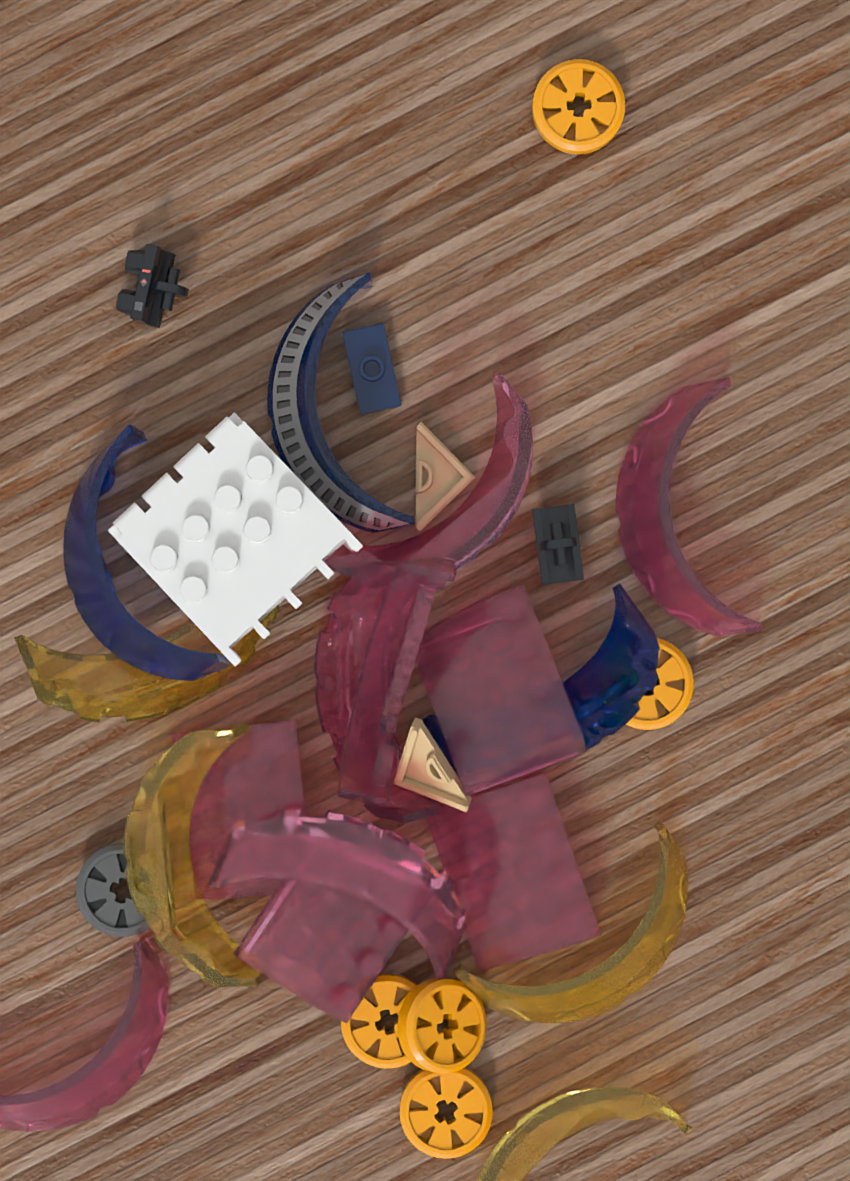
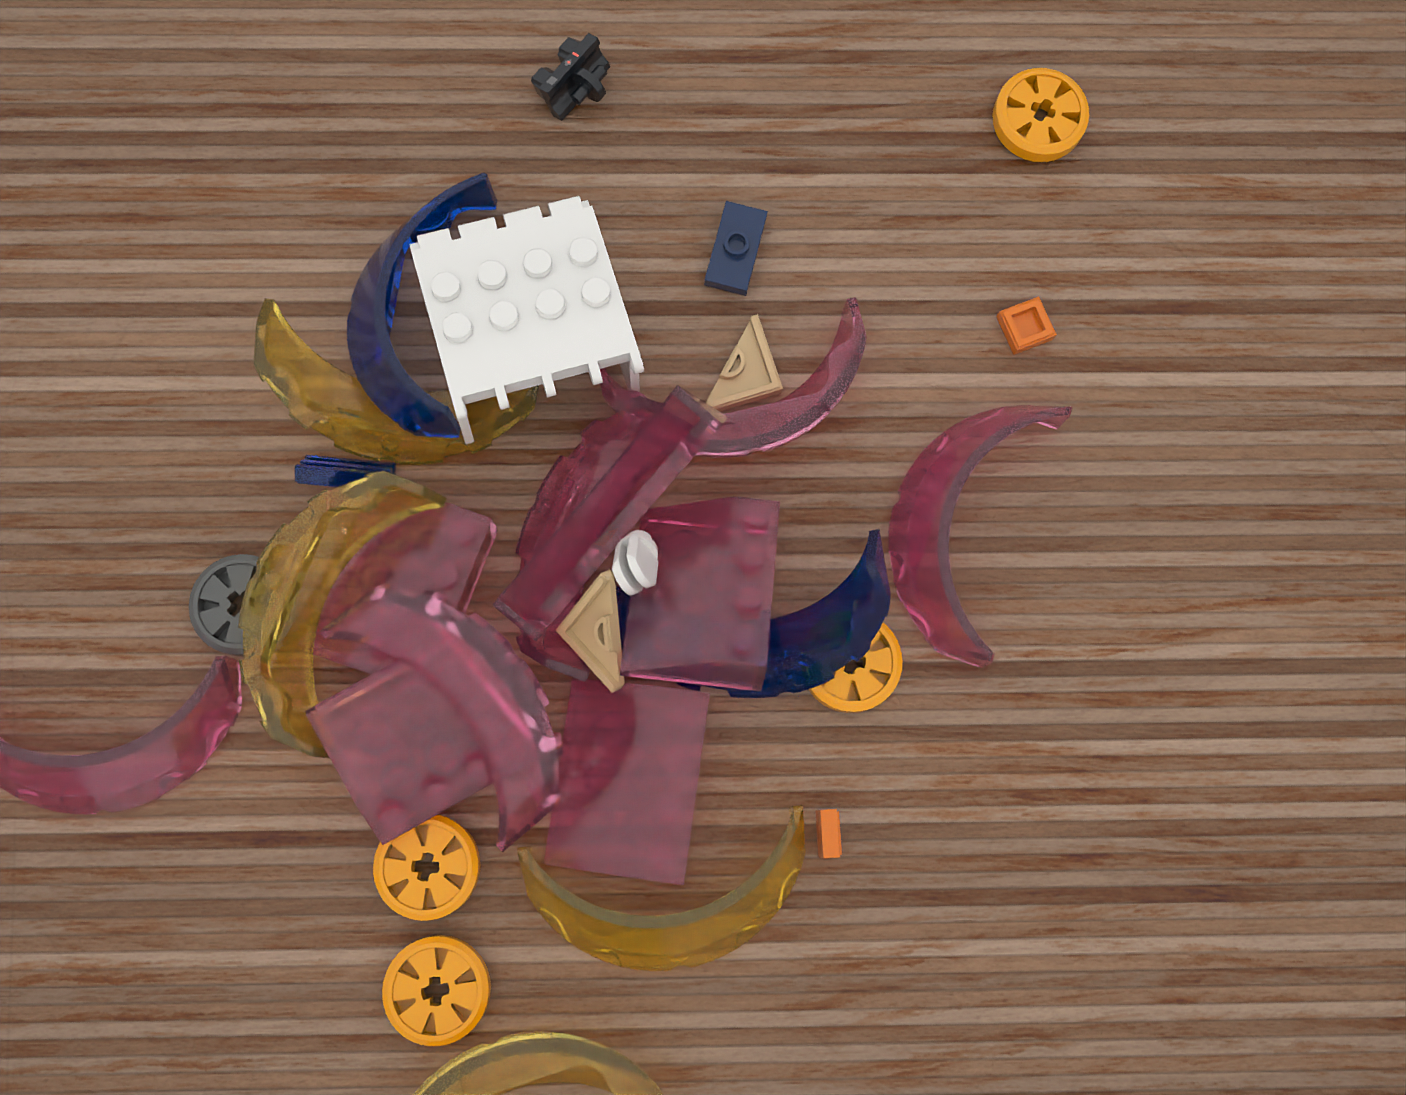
camera: 20 degrees right, 10 degrees down
(147, 738) = (337, 471): none -> clear blue tile
(296, 420) = (641, 258): windscreen -> none
(431, 697) = (635, 562): none -> white arm
(457, 1043) = (476, 926): light orange wheel -> none
(557, 544) = (830, 485): black hips -> none
(656, 311) = (1026, 325): none -> orange tile
(695, 833) = (828, 833): none -> orange tile

